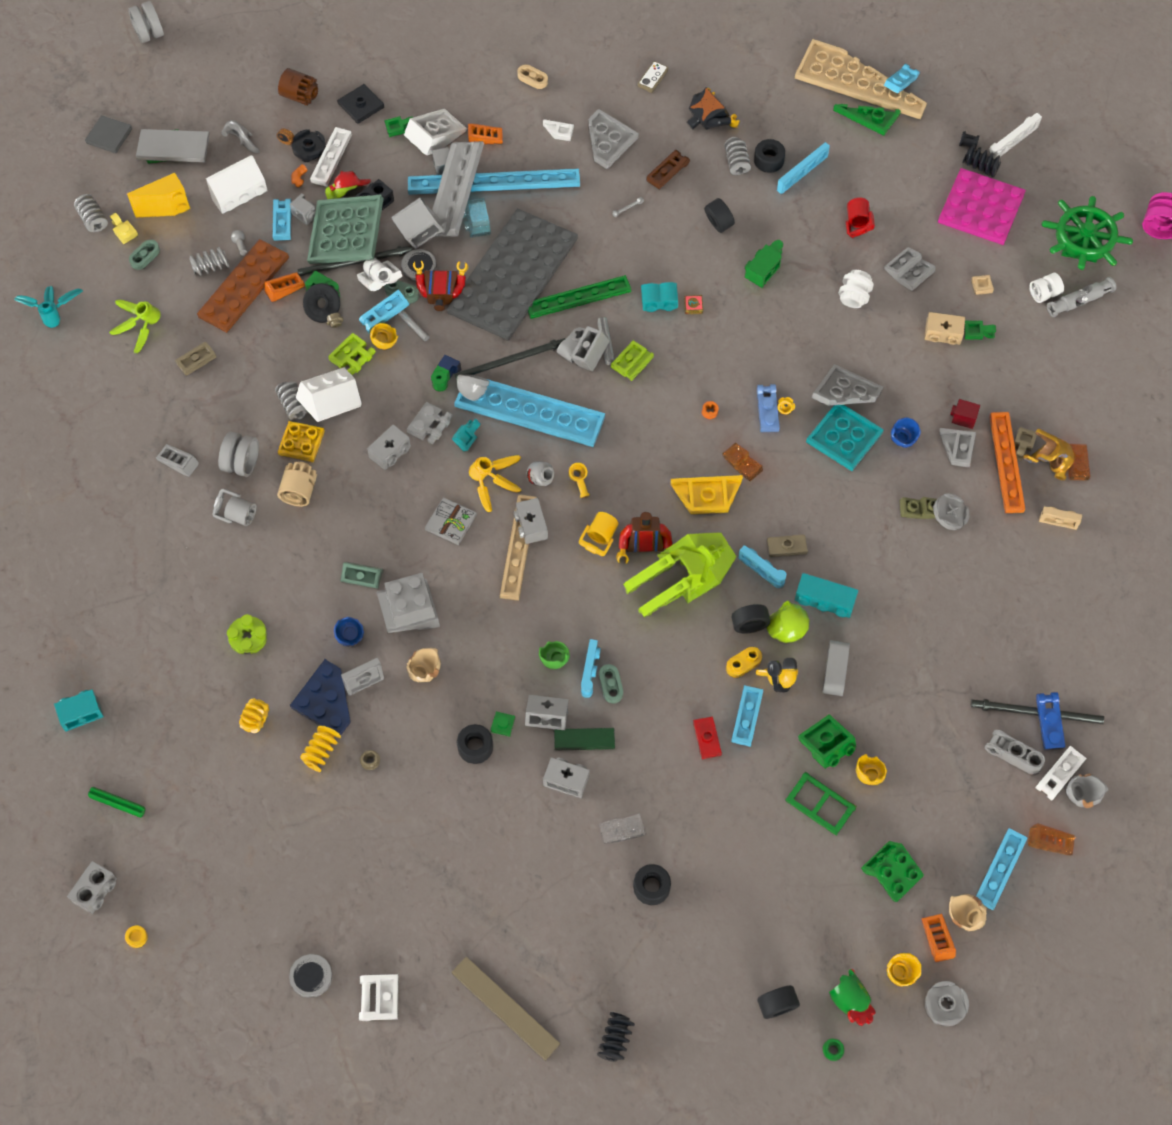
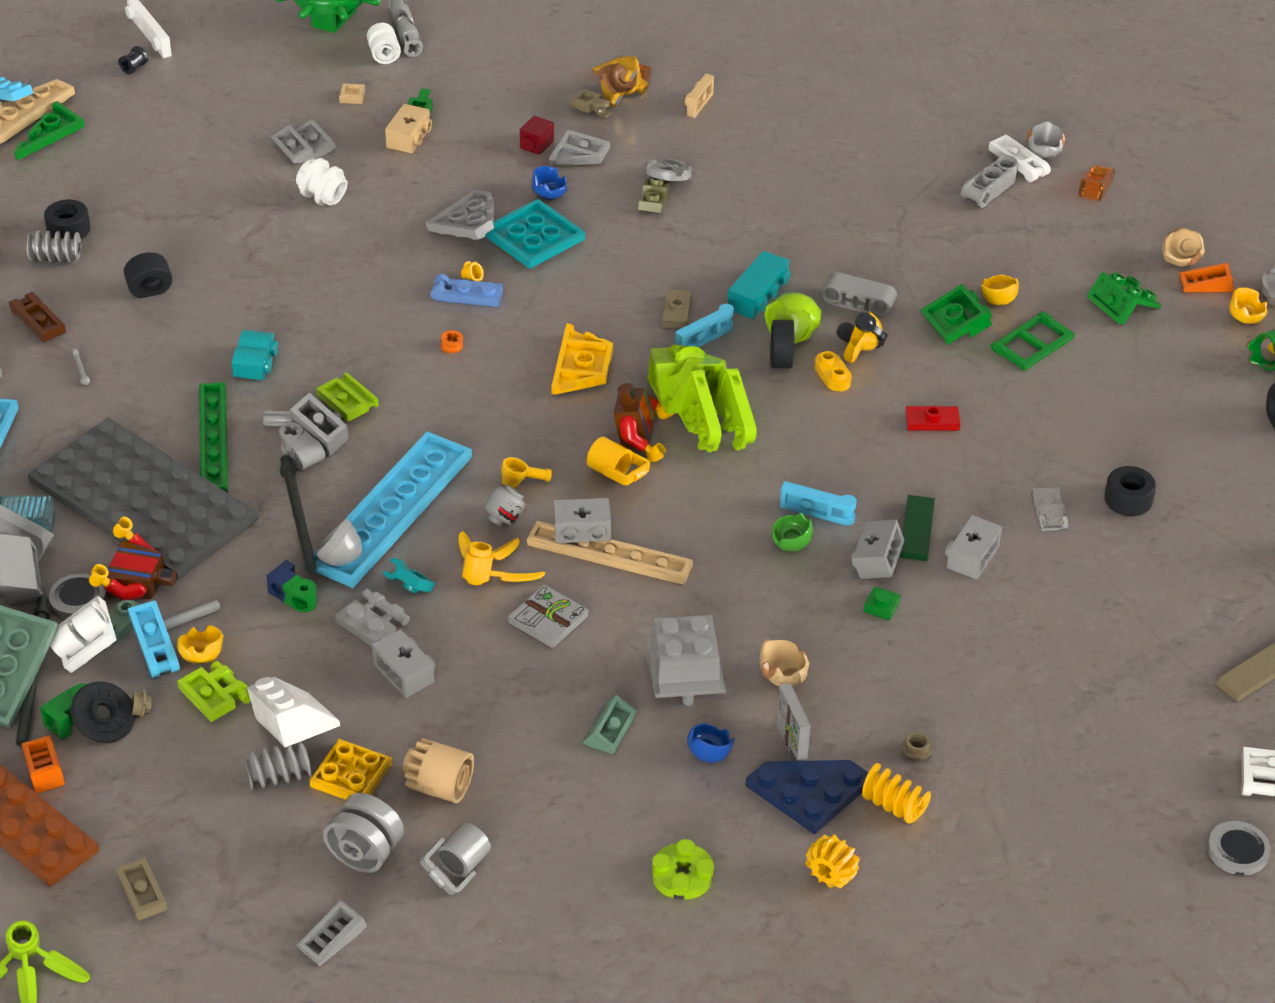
camera: 80 degrees left, 20 degrees down
(471, 732) = (908, 641): black tyre -> none
(611, 685) = (845, 485): sand green plate -> none
(693, 304) = (280, 328): tile -> none
(741, 462) = (537, 328): clear orange slope -> none
(747, 716) = (910, 377): medium azure plate -> none
(764, 264) = (244, 253): green hinge -> none
(803, 168) = (104, 196): medium azure tile -> none
(859, 217) = (205, 162): red piece -> none
(981, 206) = (235, 72): dark pink plate -> none
(982, 160) = (171, 53): black piece -> none
(986, 704) = (926, 194): pearl dark grey bar -> none
(1001, 868) = (1127, 218): medium azure plate -> none
(1007, 462) = (613, 119): orange plate -> none
(1050, 721) = (956, 150): blue plate -> none

